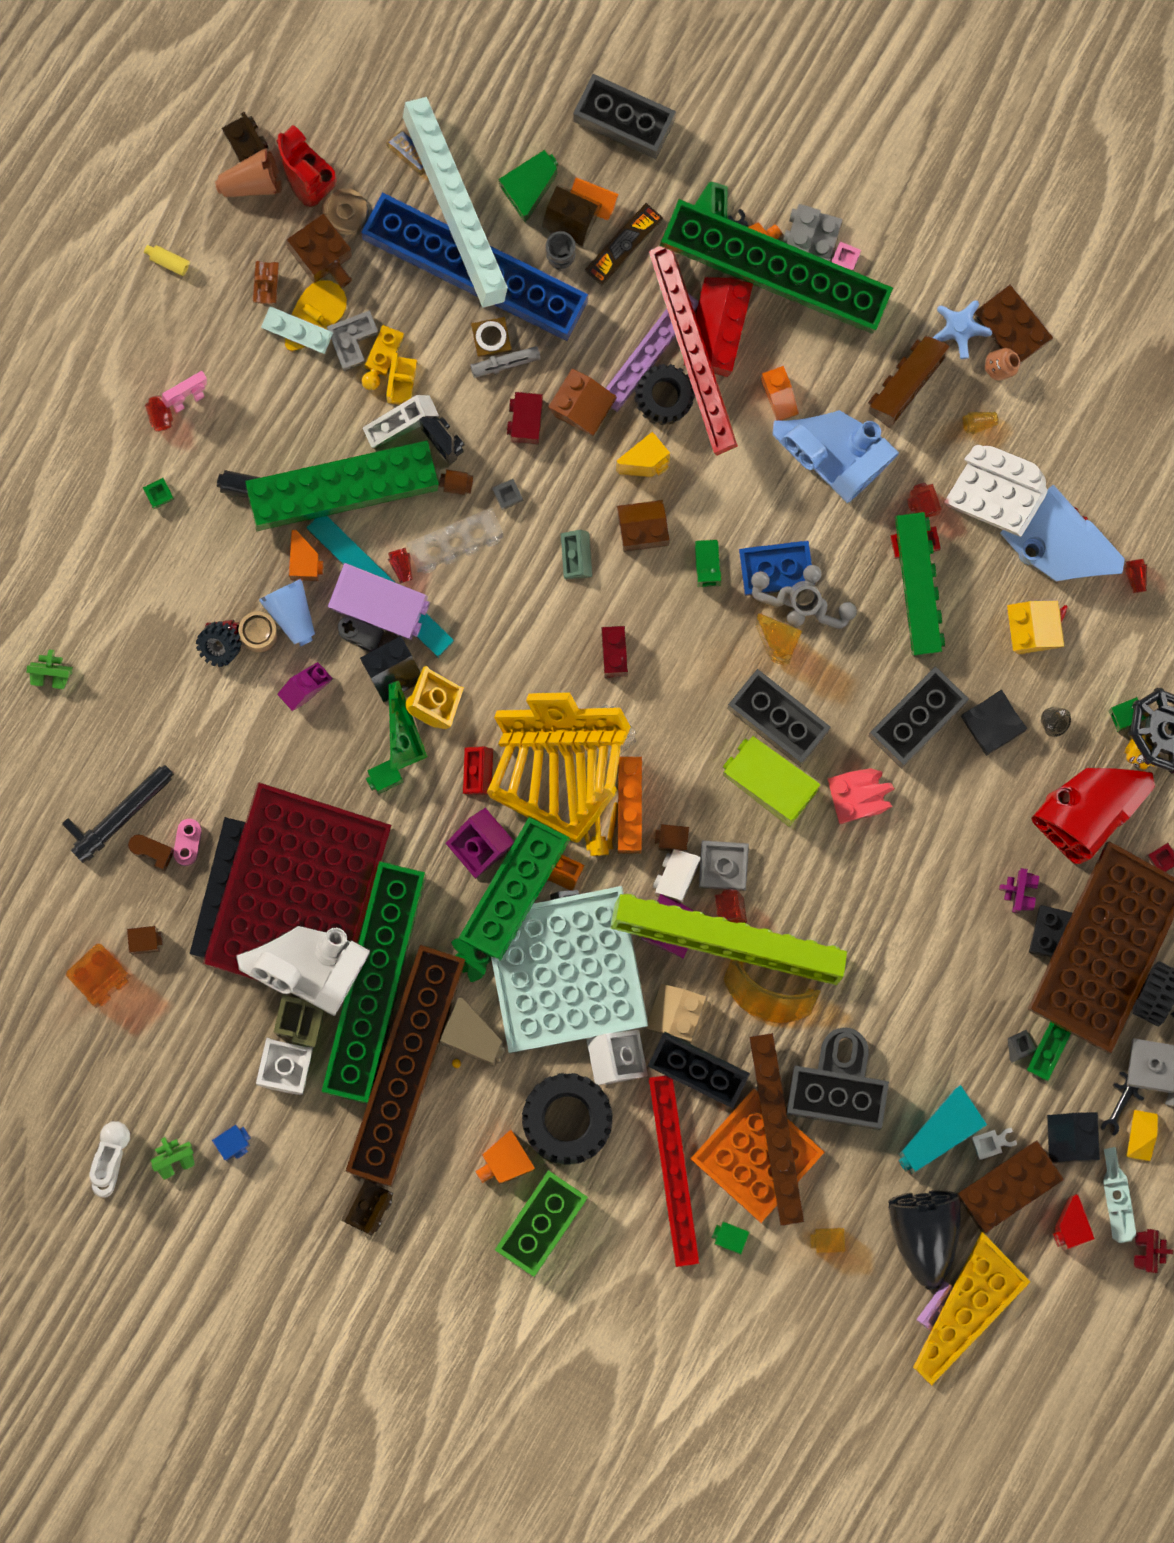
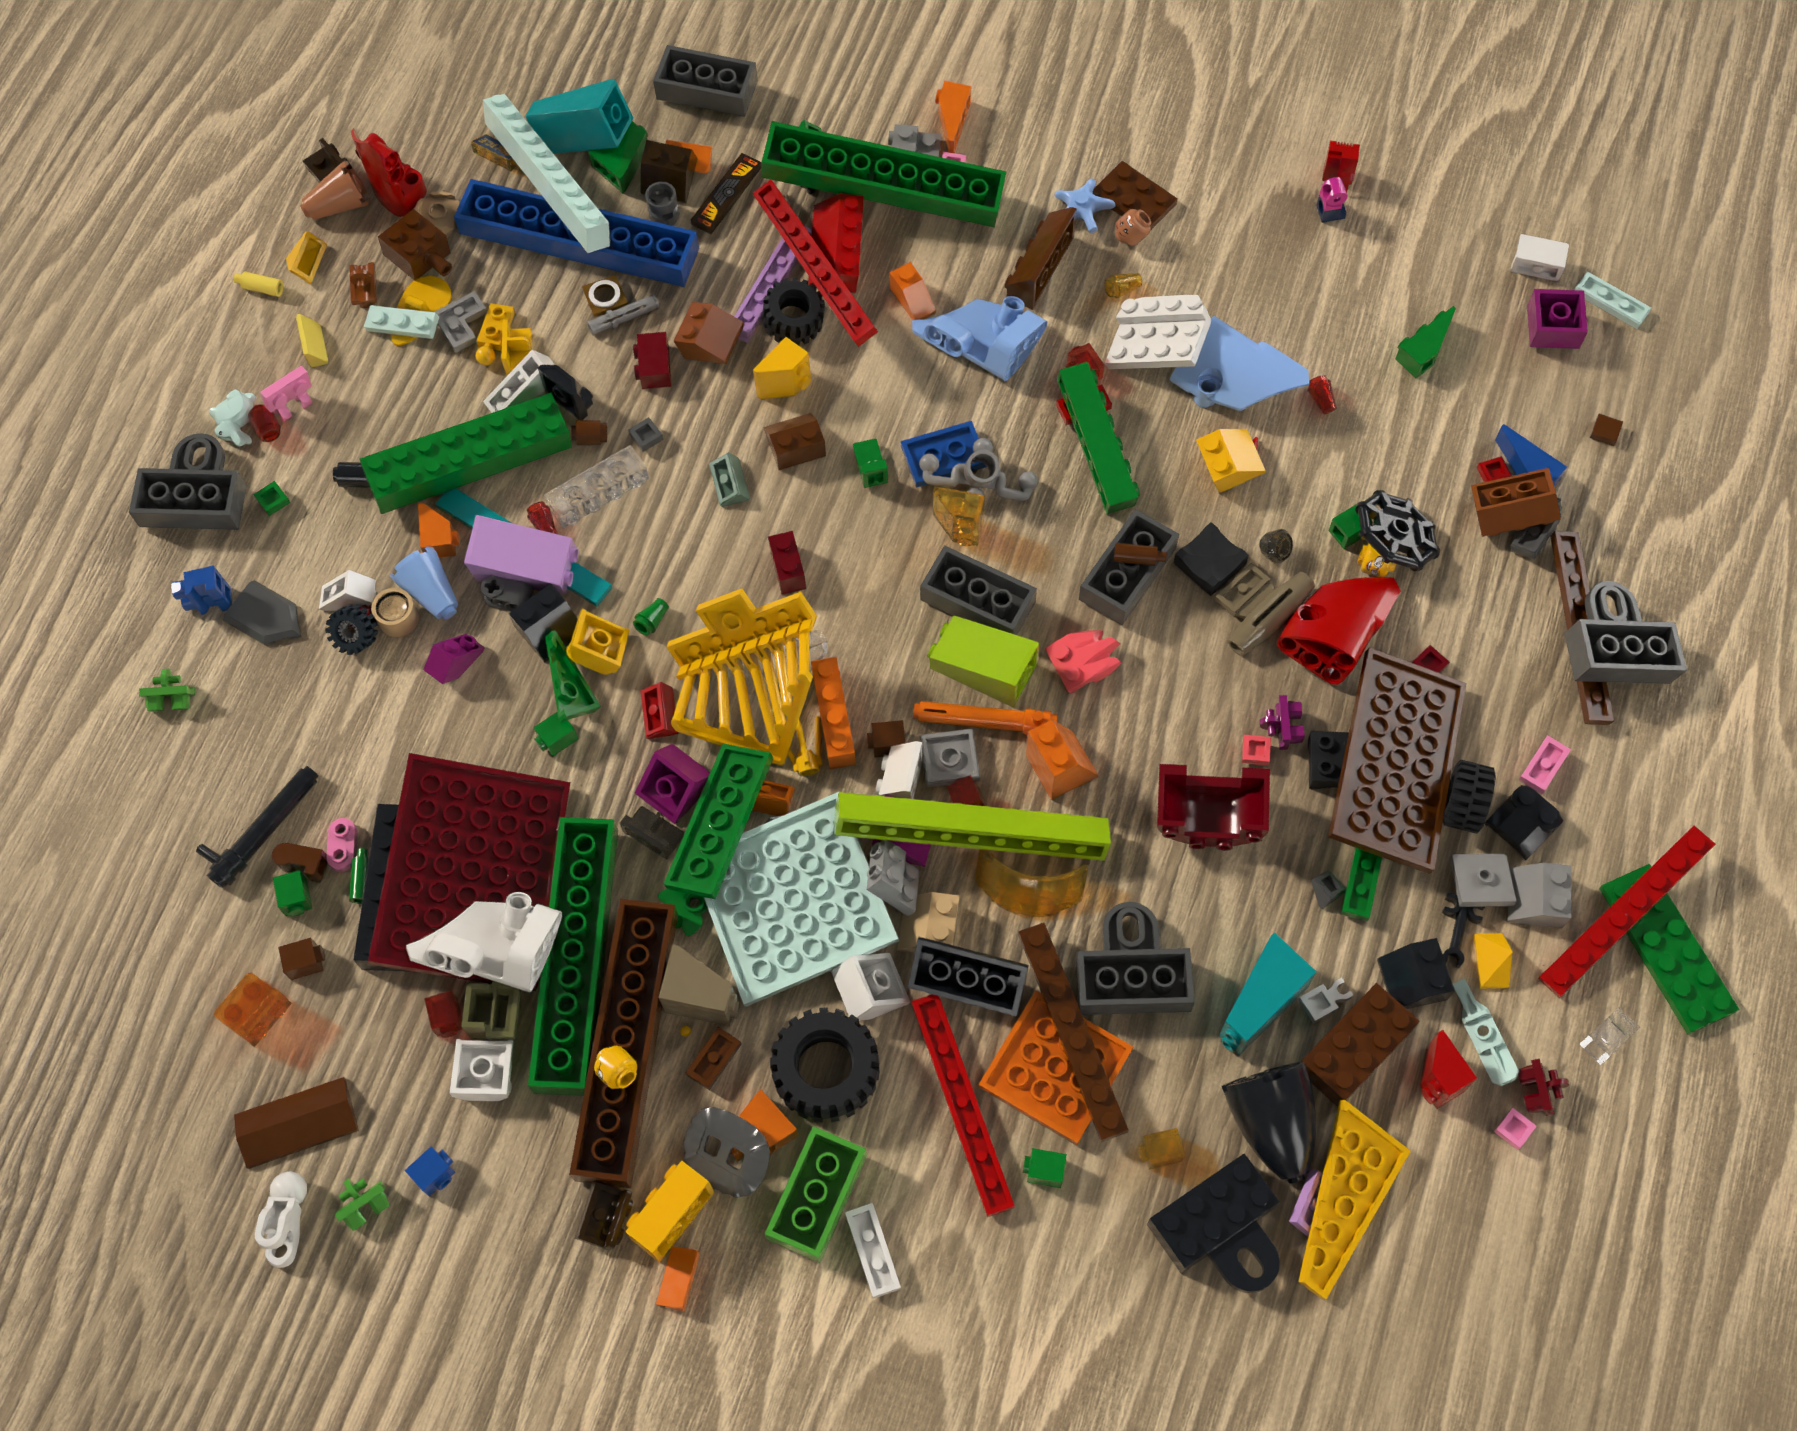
camera: 10 degrees left, 15 degrees down
(86, 475) = (190, 494): none -> dark grey brick
(88, 578) = (202, 590): none -> blue hips
(124, 1079) = (295, 1123): none -> reddish brown slope
(129, 400) = (232, 415): none -> light aqua animal
(140, 608) = (263, 614): none -> dark grey tile
(141, 881) = (292, 893): none -> green brick
(200, 875) = (358, 876): none -> green cylinder
(211, 333) = (312, 341): none -> light yellow slope
(213, 238) = (306, 256): none -> yellow slope
(217, 604) = (346, 590): none -> white slope
(258, 1012) = (444, 1014): none -> clear red brick
(396, 1092) = (615, 1067): none -> yellow head
(418, 1267) = (678, 1278): none -> orange slope
(420, 1215) = (669, 1210): none -> yellow brick
(456, 882) = (652, 831): none -> clear smoke panel
(476, 1093) = (713, 1058): none -> reddish brown plate
(482, 1163) = (733, 1133): none -> dark grey piece
(484, 680) = (650, 617): none -> green cone
(497, 147) = (582, 118): none -> teal slope
(578, 1276) = (873, 1250): none -> white plate
(653, 970) = (893, 877): none -> light grey plate
(764, 835) = (981, 716): none -> orange cylinder
(818, 888) = (1058, 758): none -> orange slope
(858, 193) = (953, 108): none -> orange slope
(860, 1309) = (1218, 1222): none -> black brick
(927, 714) = (1138, 554): none -> reddish brown cylinder
(937, 959) = (1213, 809): none -> dark red cylinder
(990, 910) = (1256, 750): none -> coral plate
(1029, 778) = (1261, 606): none -> dark tan plate
(1120, 1280) = (1515, 1129): none -> bright pink plate

